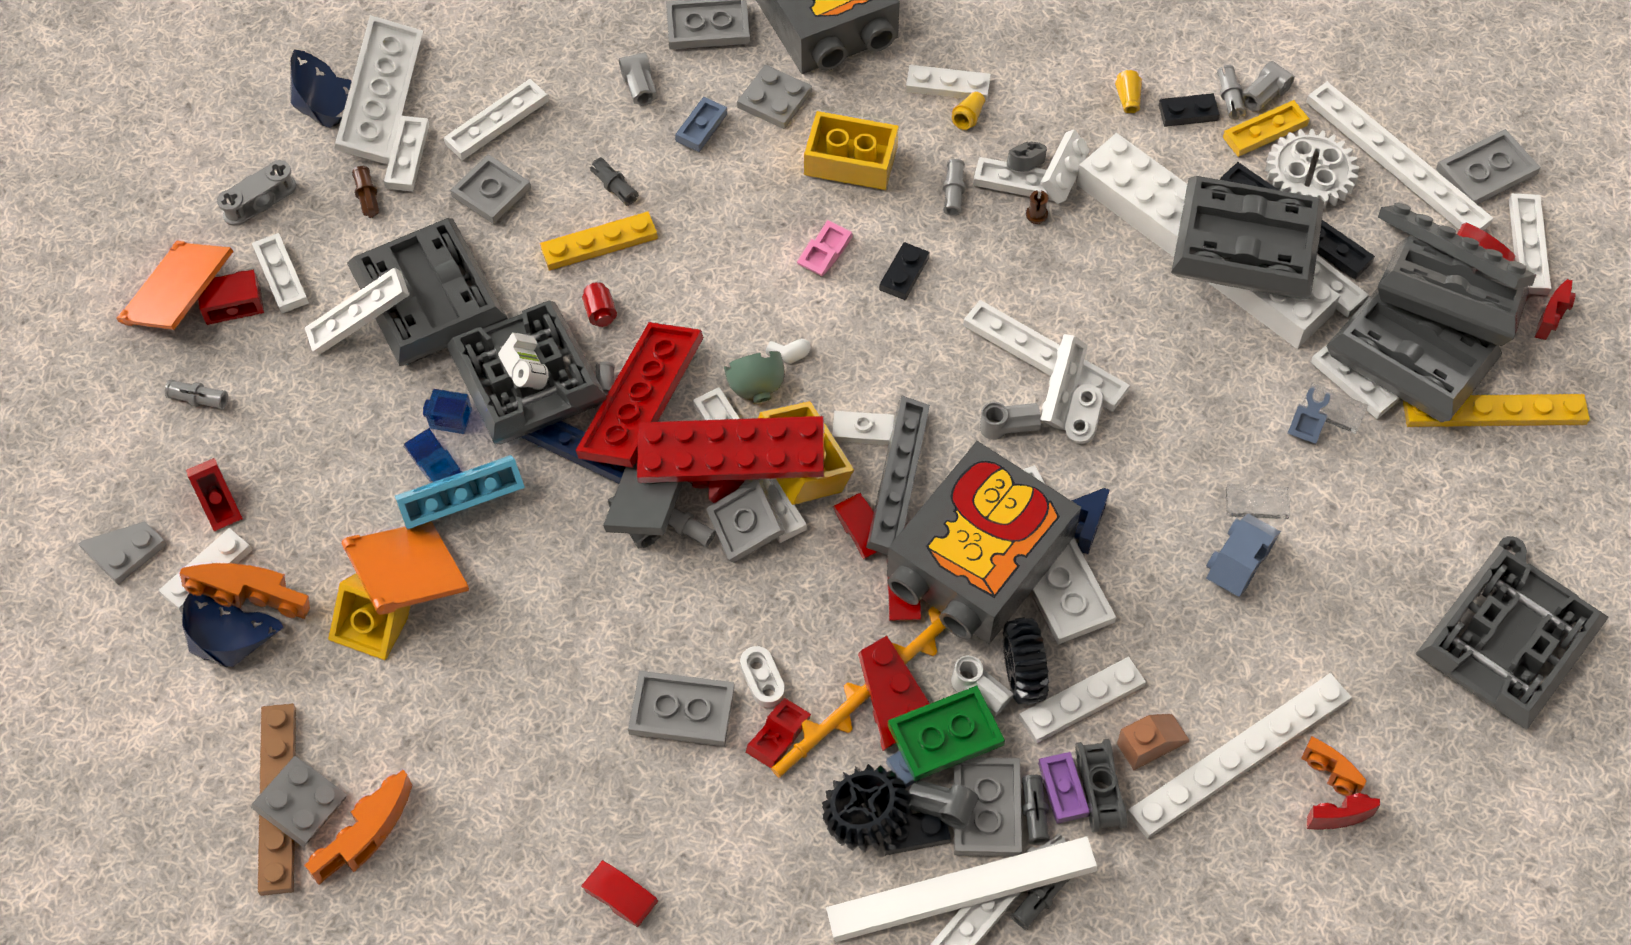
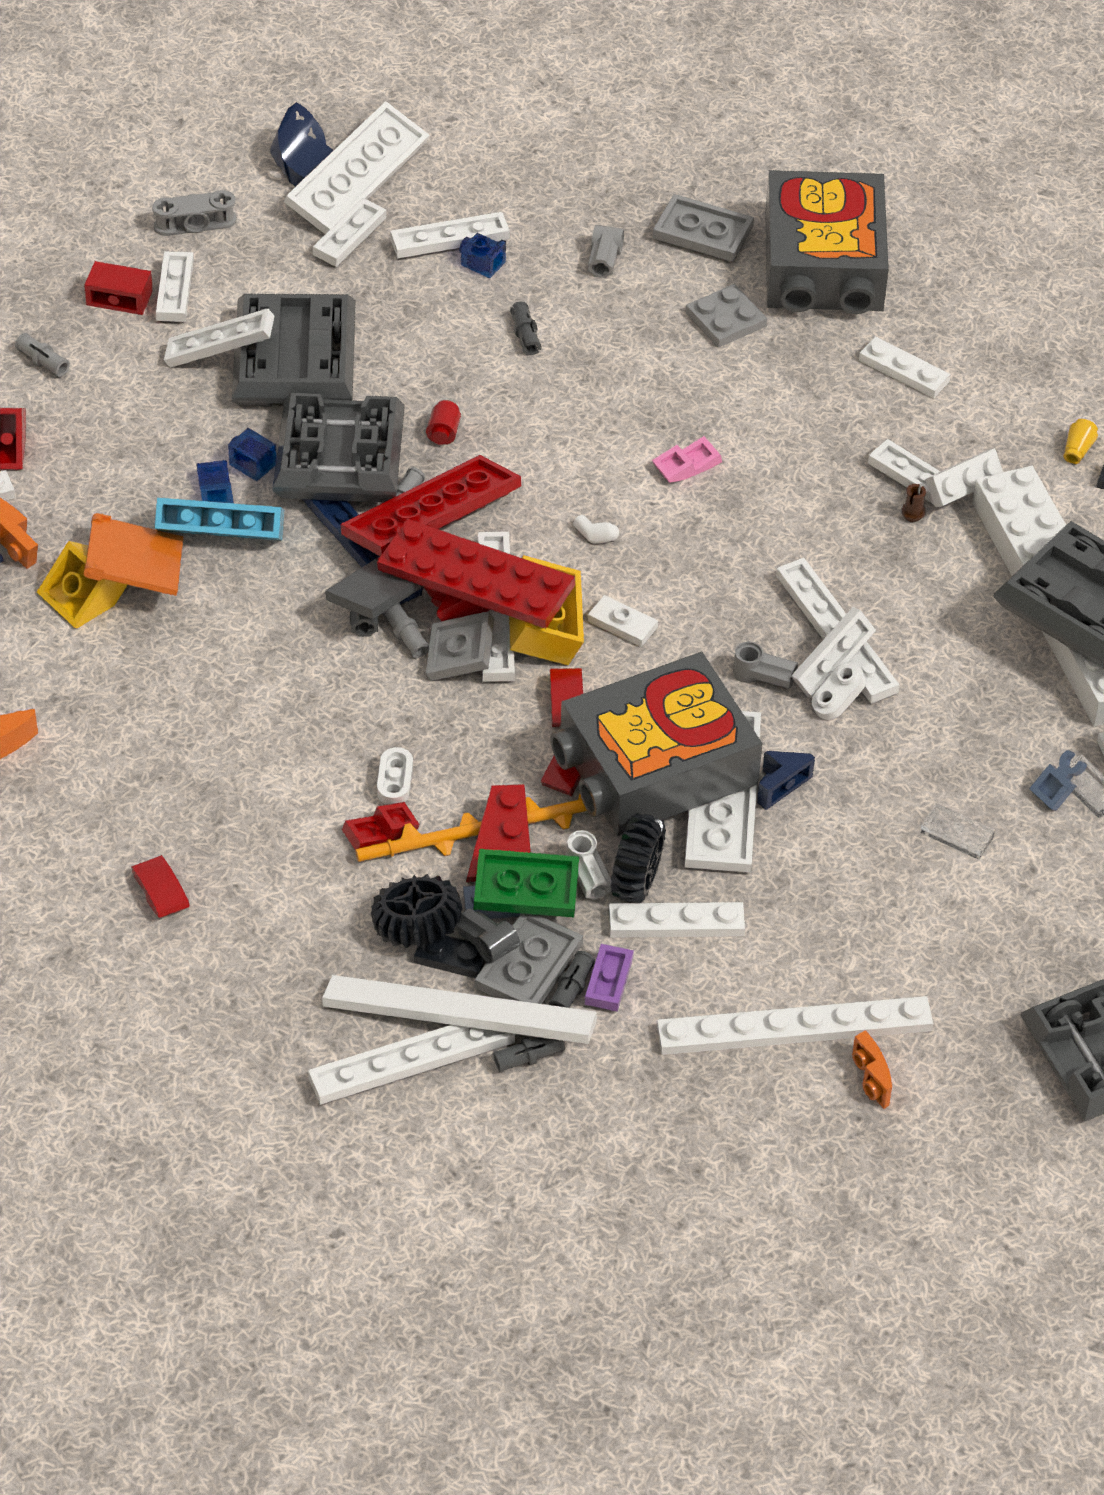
camera: 25 degrees right, 10 degrees down
(174, 285) = (75, 258): piece -> none
(365, 191) = (293, 249): reddish brown axle -> none
(490, 189) = (407, 290): light grey plate -> none
(522, 362) = (337, 432): white leg -> none
(536, 126) = (483, 254): none -> clear blue brick
(598, 240) = (479, 372): yellow plate -> none
(681, 708) = (307, 770): light grey plate -> none
(701, 124) = (639, 311): sand blue plate -> none
(756, 376) = (547, 534): sand green cylinder -> none
(851, 150) = (764, 384): yellow brick -> none
(898, 474) = (639, 653): dark grey plate -> none
(904, 271) = (751, 508): black plate -> none
(954, 187) = (846, 456): light grey pin -> none
(968, 111) = (905, 397): yellow cone -> none
(1026, 156) = (933, 455): dark grey beam -> none
(1106, 804) = (644, 989): dark grey piece -> none
(1150, 739) = (718, 973): nougat slope -> none
(1242, 554) = (905, 860): sand blue brick -> none
(1353, 810) = (867, 1112): red slope -> none

